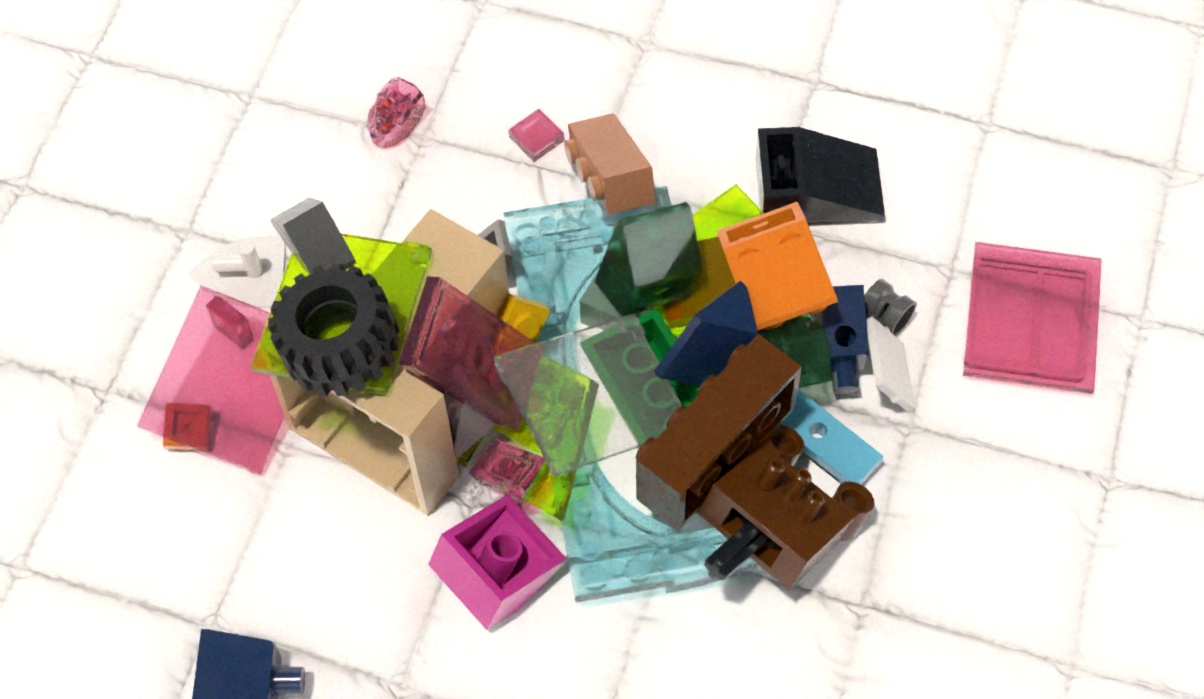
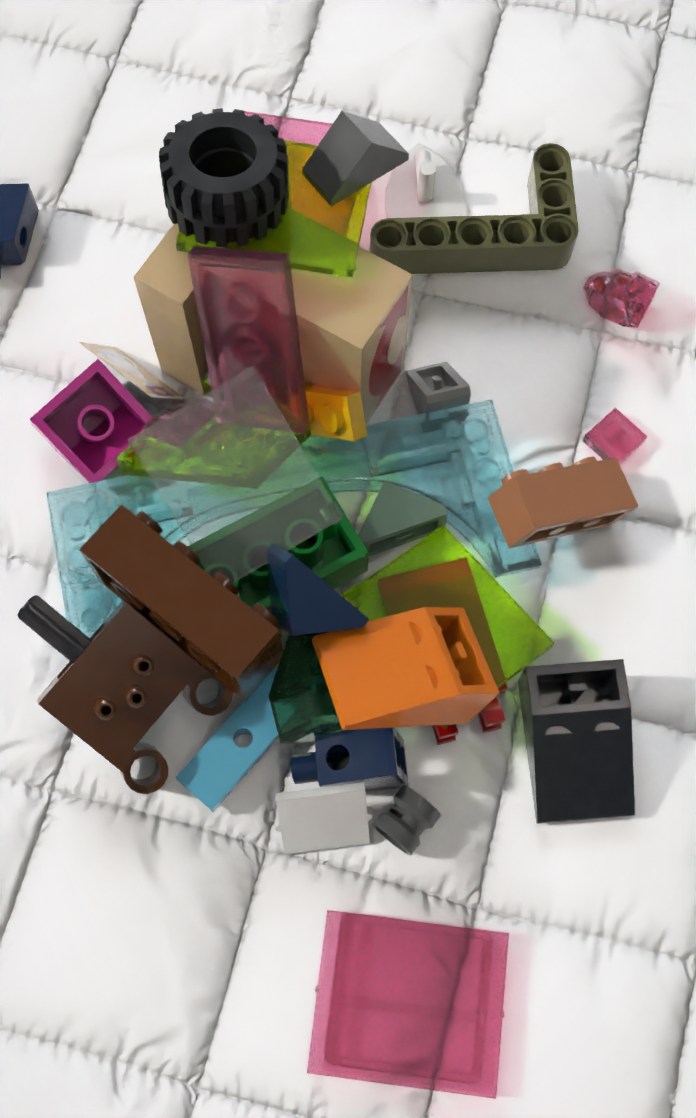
camera: 85 degrees right, 10 degrees up
(298, 160) = (550, 219): none -> olive beam
(440, 524) = (132, 371): none -> sticker
(651, 260) = (421, 539): clear green slope -> none

